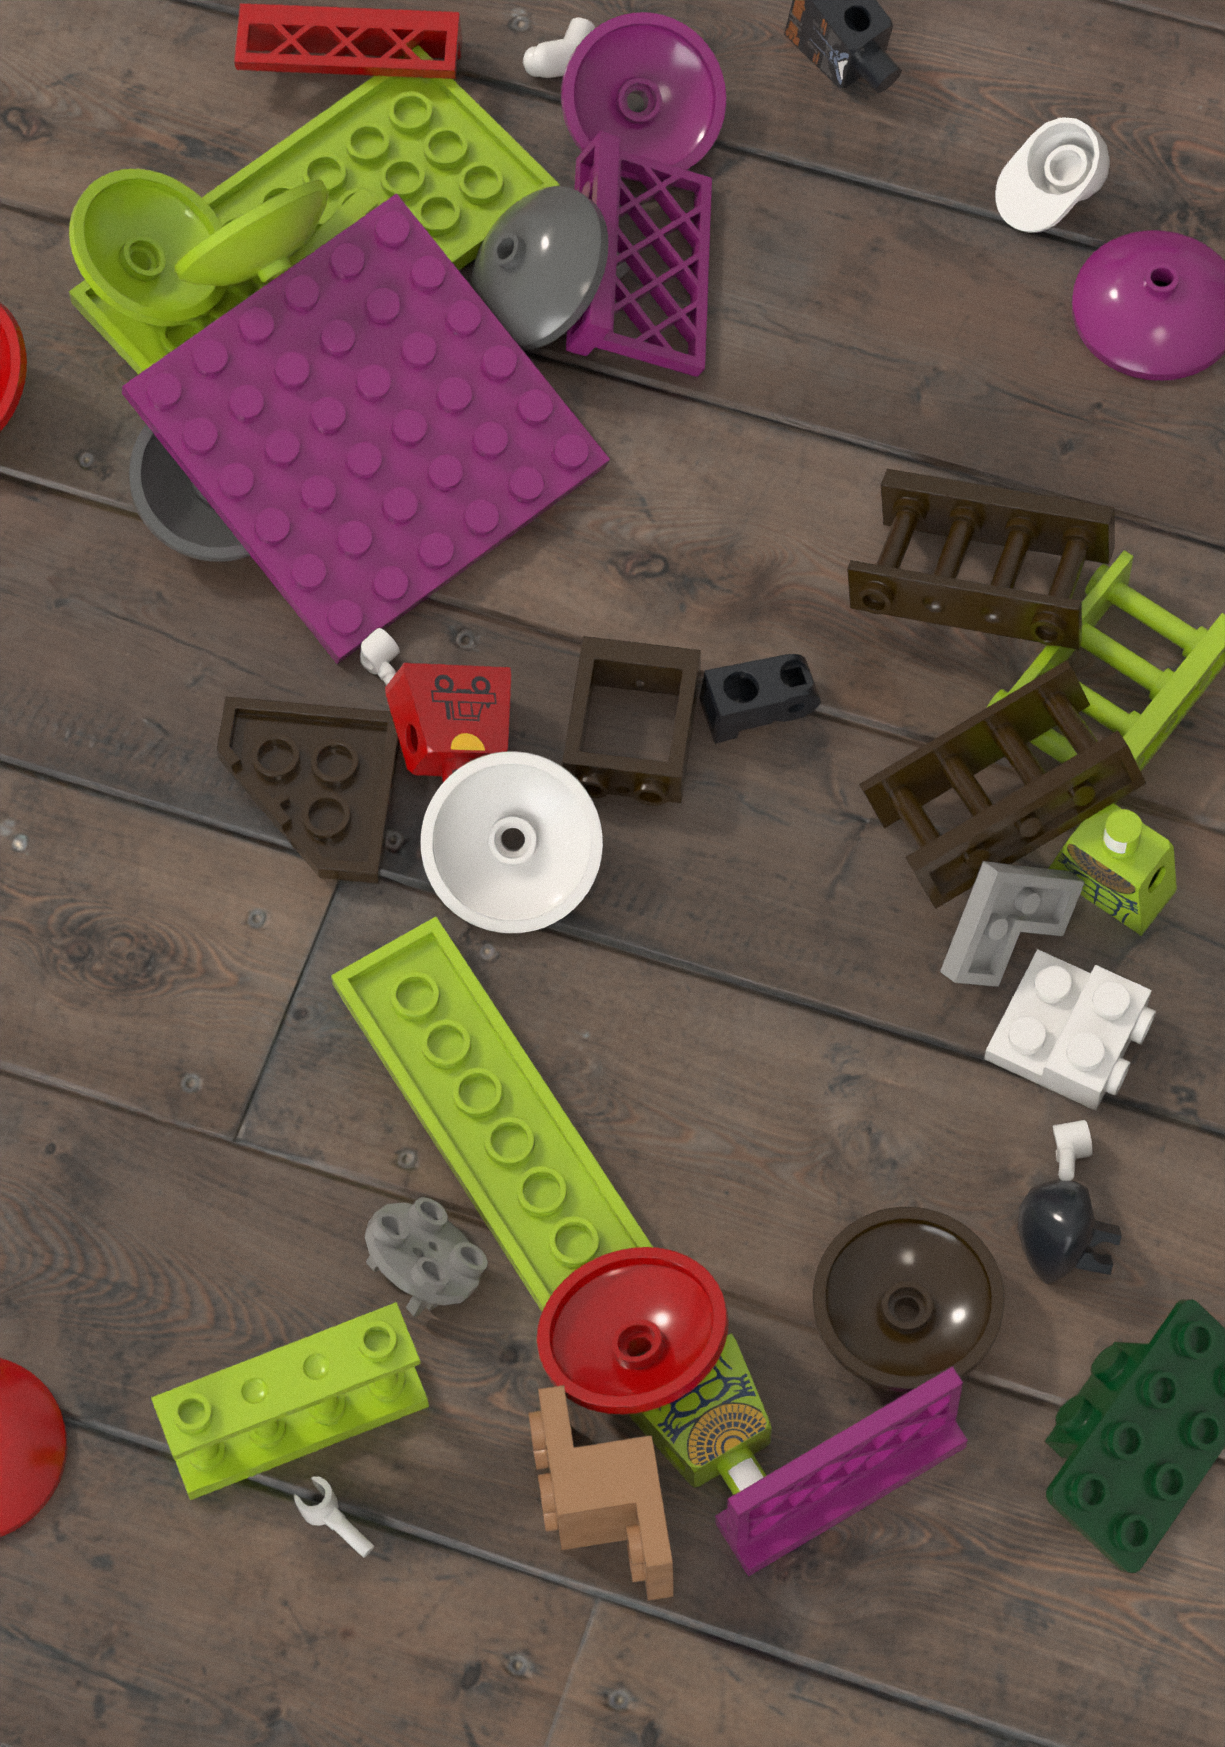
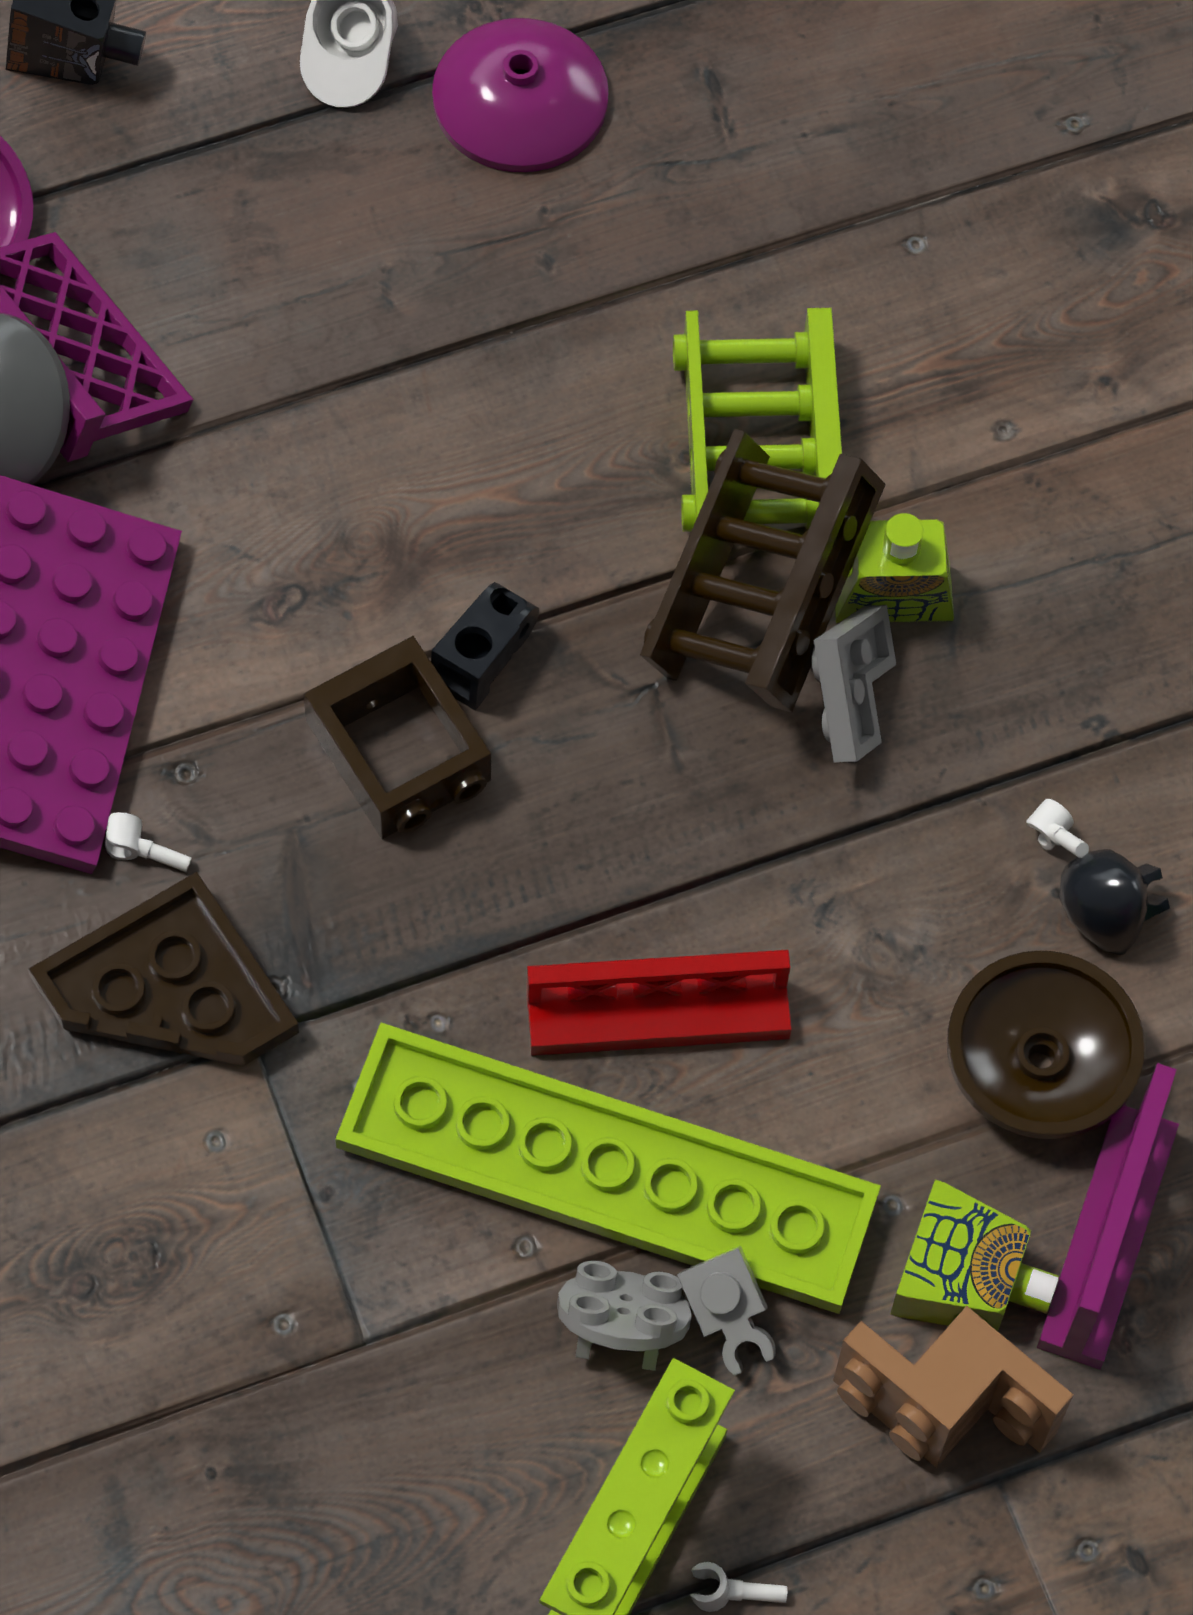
camera: 45 degrees left, 0 degrees up
(449, 714) = (252, 848): red torso -> none
(504, 886) = (434, 920): white dish -> none
(506, 1301) = (725, 1298): none -> light grey plate
(626, 1307) = (842, 1210): red dish -> none
(653, 1054) = (658, 1002): none -> red fence
(990, 516) = (558, 354): dark brown fence -> none
(1071, 1029) = (971, 733): white plate -> none

